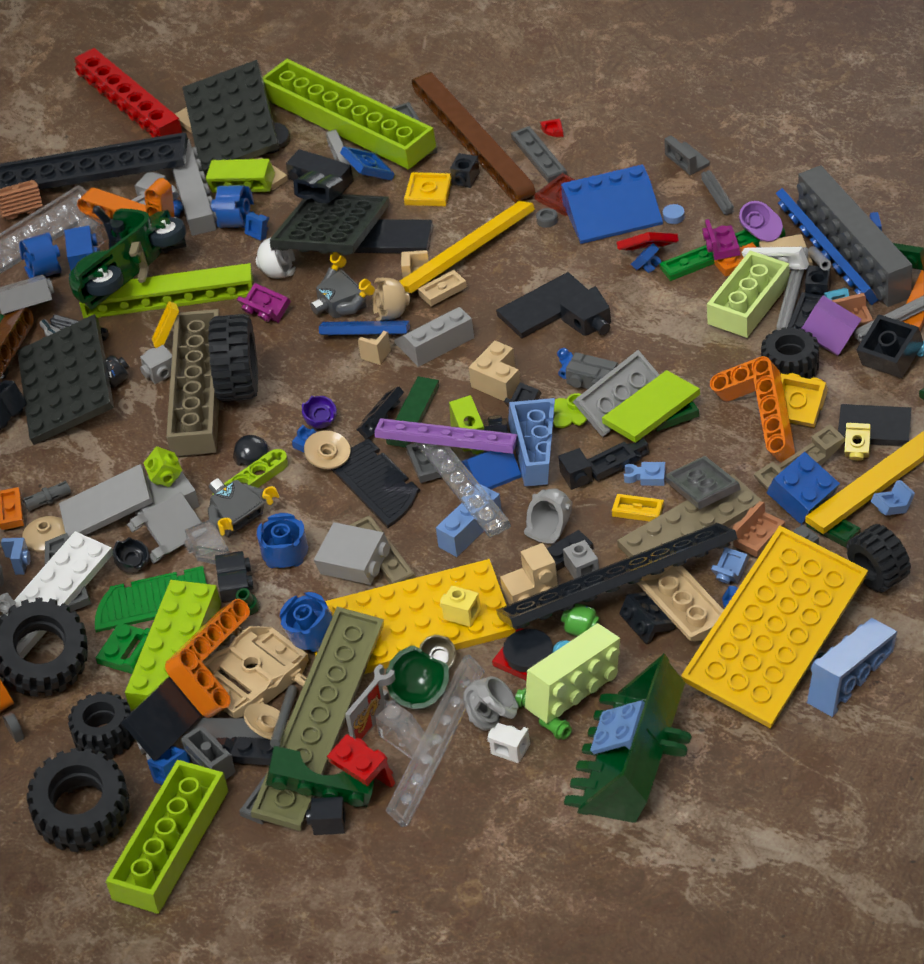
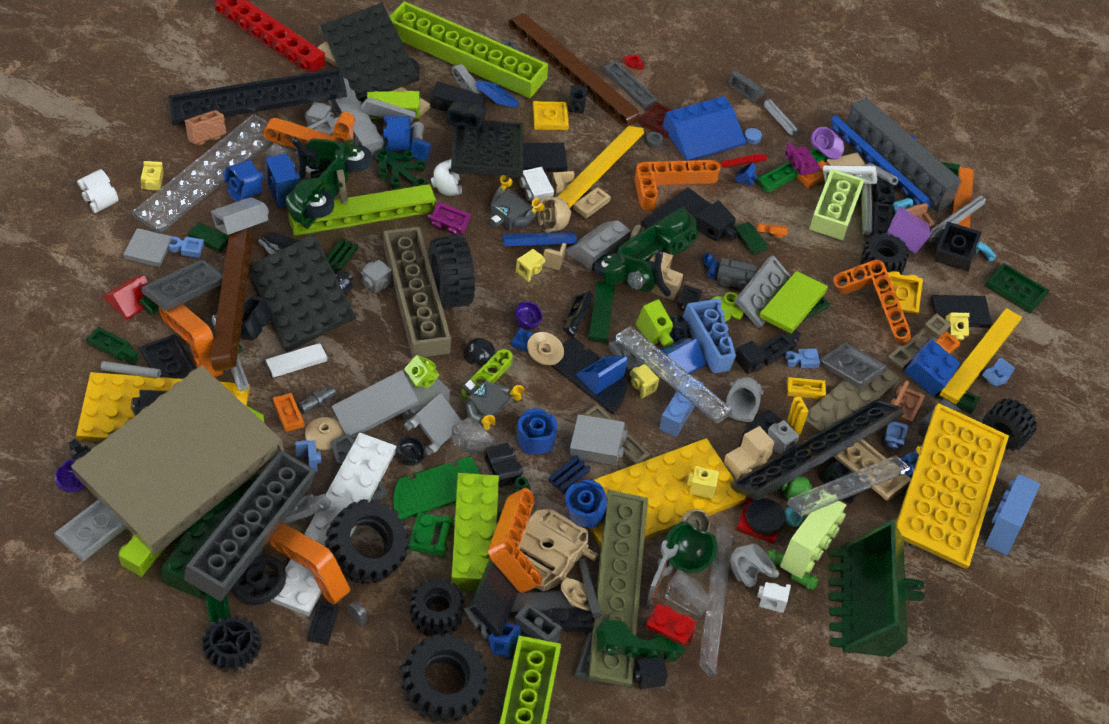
camera: 25 degrees left, 5 degrees up
(39, 453) = (296, 360): none -> white tile
(125, 341) = (344, 246): none -> dark green tile
(165, 324) = (375, 241): yellow tile -> none
(215, 234) = (385, 157): none -> dark green plant
(216, 177) = (381, 109): none -> light grey tile
(262, 203) = (417, 129): none -> light grey pin
(313, 585) = (579, 464): none -> dark blue tile
(342, 355) = (529, 264): none -> light yellow brick
(379, 263) = (536, 184): none -> white brick
(387, 481) = (603, 373): none -> blue slope
(434, 491) = (644, 380): none -> light yellow brick
(446, 435) = (648, 335): medium lavender tile -> none
(459, 350) = (633, 258): none -> dark green piece
(551, 256) = (671, 173): none -> orange beam
(606, 536) = (797, 416): none -> yellow tile
(617, 727) = (862, 579): medium blue bracket -> none
(628, 332) = (751, 238): none -> dark green tile
(632, 616) = (847, 485): none -> clear tile
(664, 324) = (776, 230): none -> orange plate
(837, 462) = (948, 342): none -> orange plate

